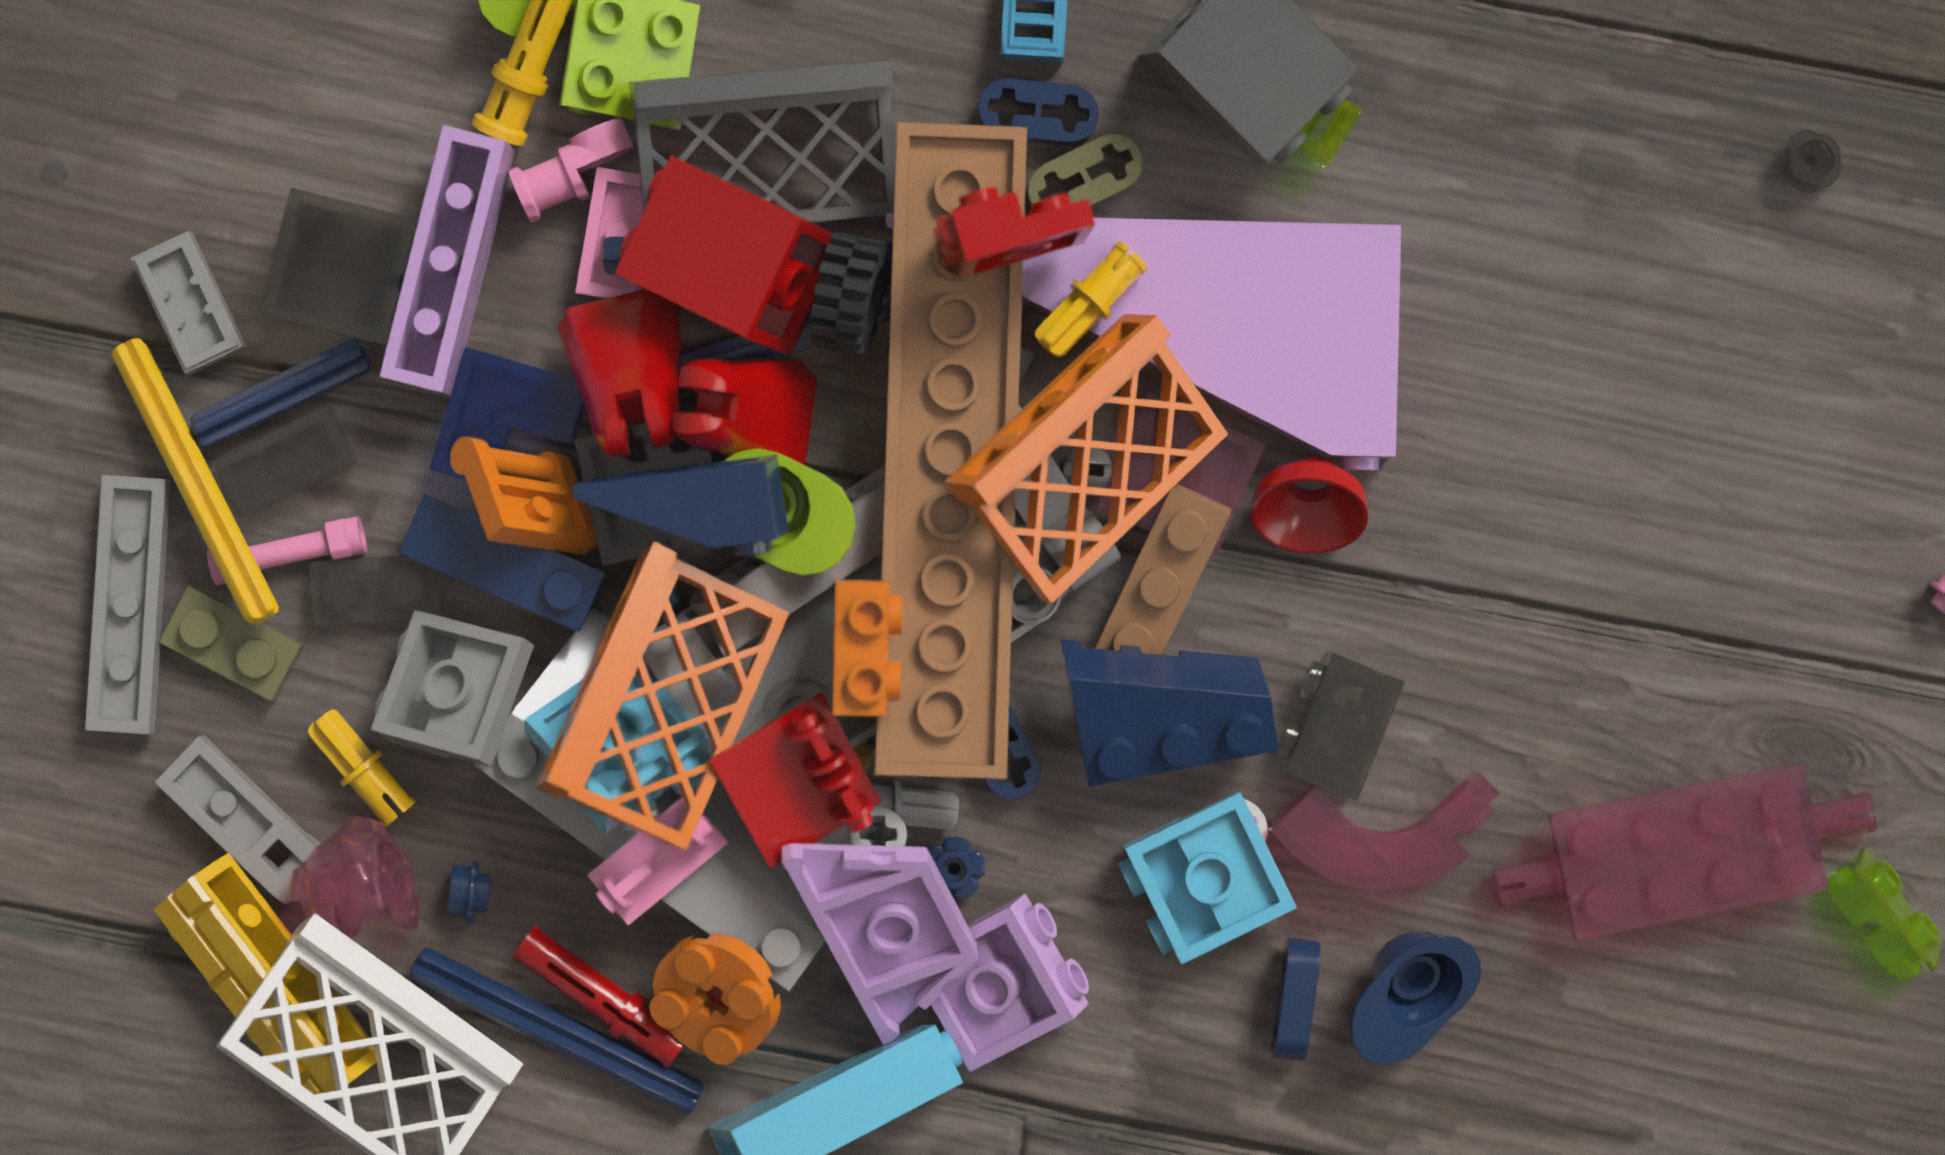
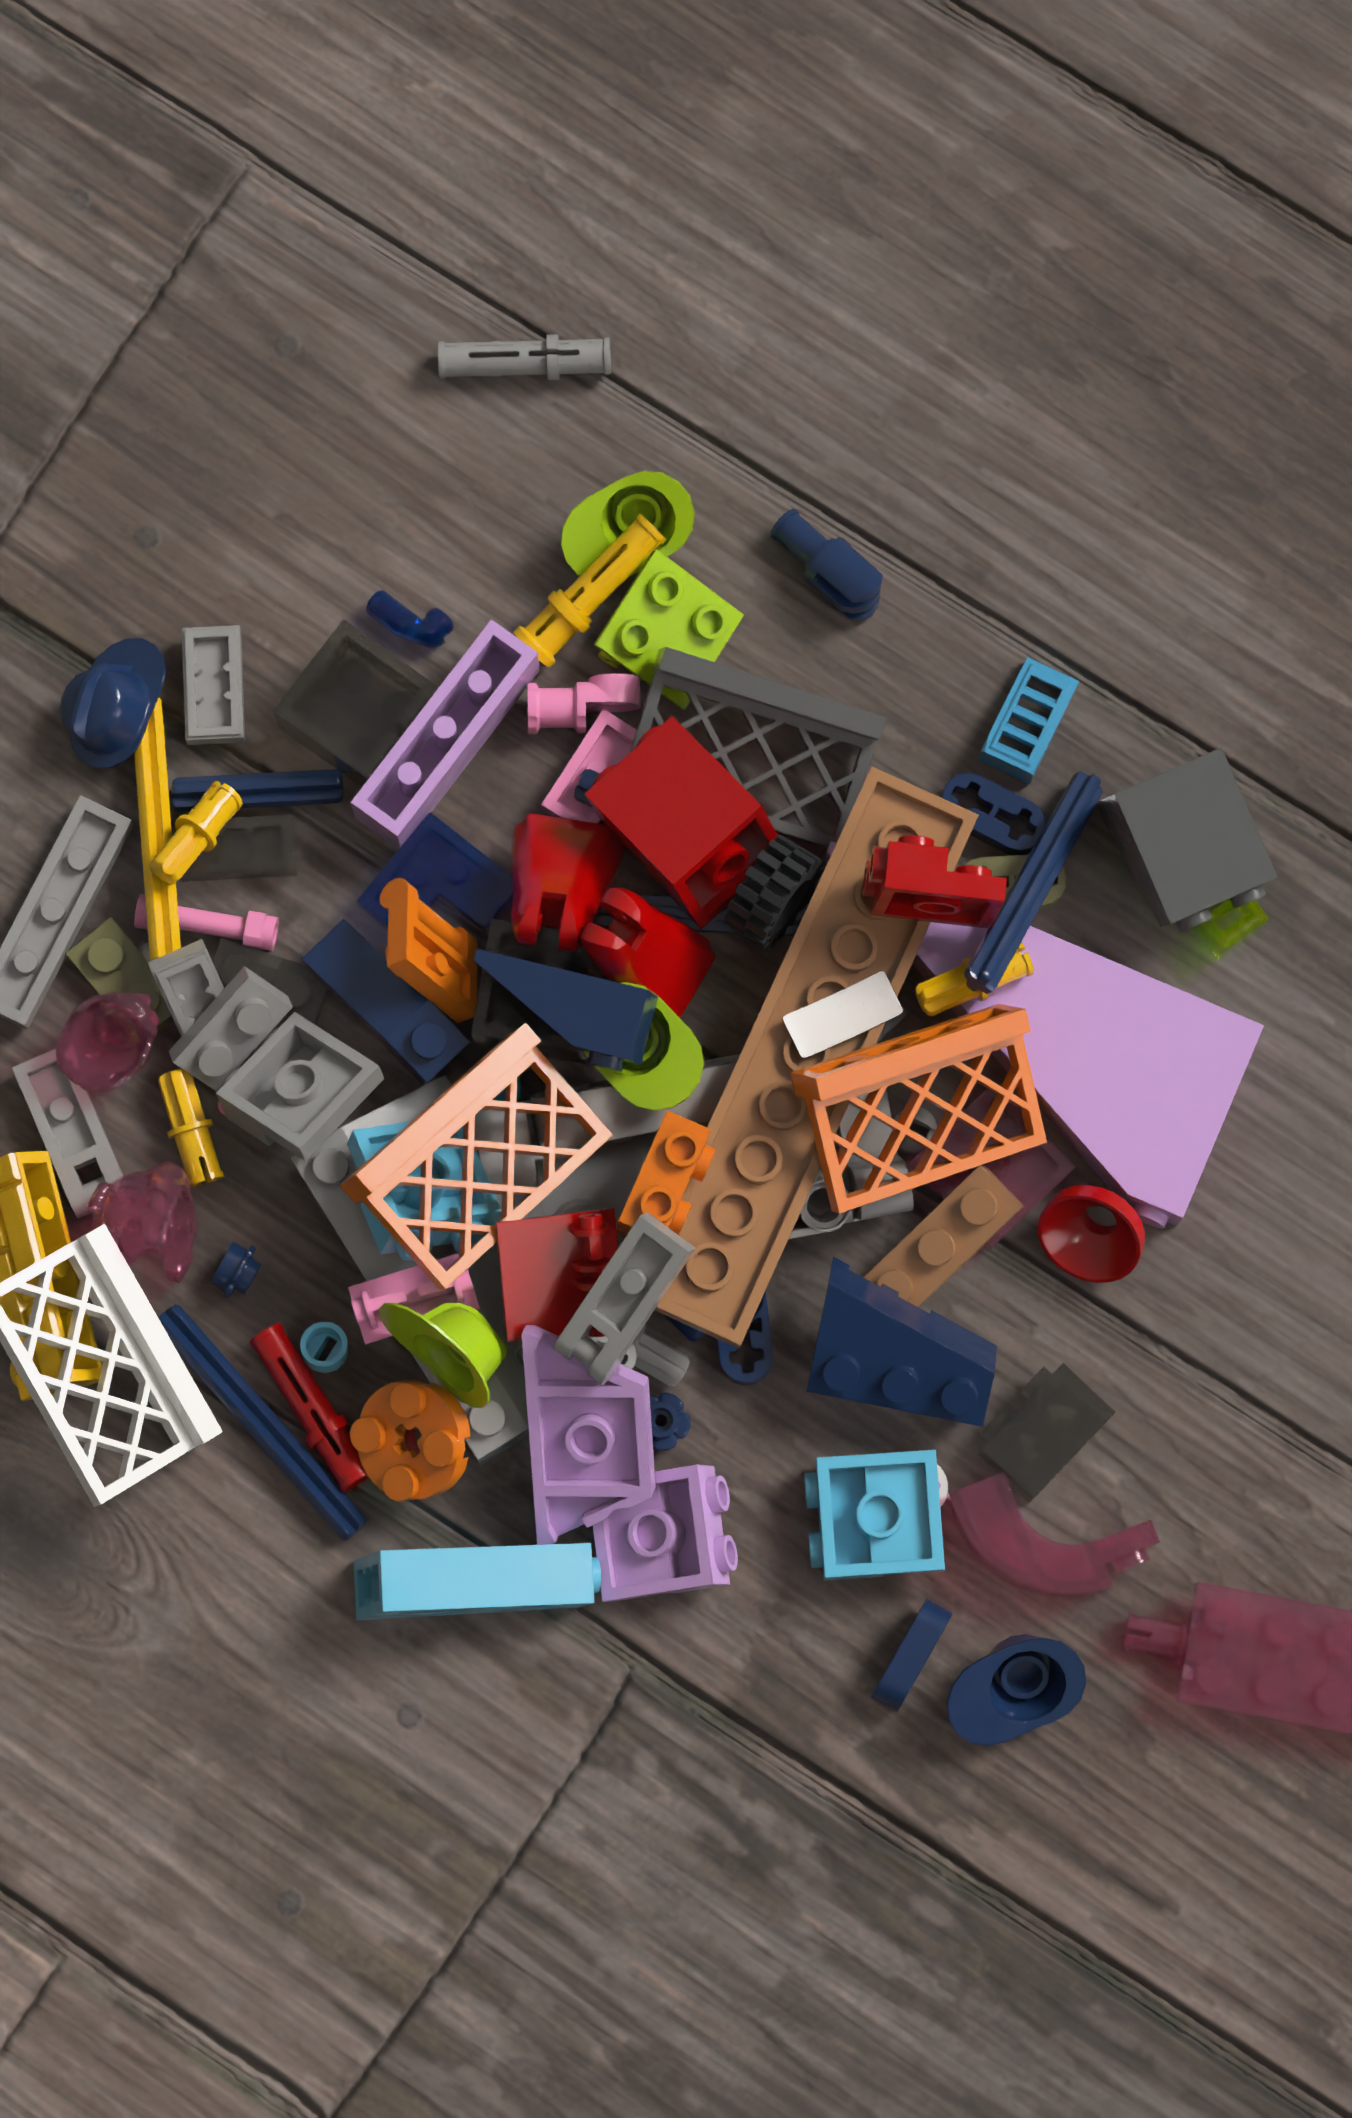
camera: 25 degrees right, 10 degrees down
(93, 363) = (113, 702): none -> dark blue piece
(235, 469) = (196, 832): none -> yellow axle
(237, 720) = (107, 1040): none -> clear pink hair
(312, 640) = (187, 982): none -> light grey plate
(357, 654) = (230, 1028): none -> light grey plate
(358, 158) = (406, 624): none -> clear blue arm
(576, 933) = (314, 1342): none -> medium azure hinge
(720, 891) = (452, 1343): none -> lime piece
(872, 787) = (624, 1296): none -> light grey plate
(972, 396) = (843, 1015): none -> white sticker
(1110, 174) = (1033, 883): none -> dark blue axle

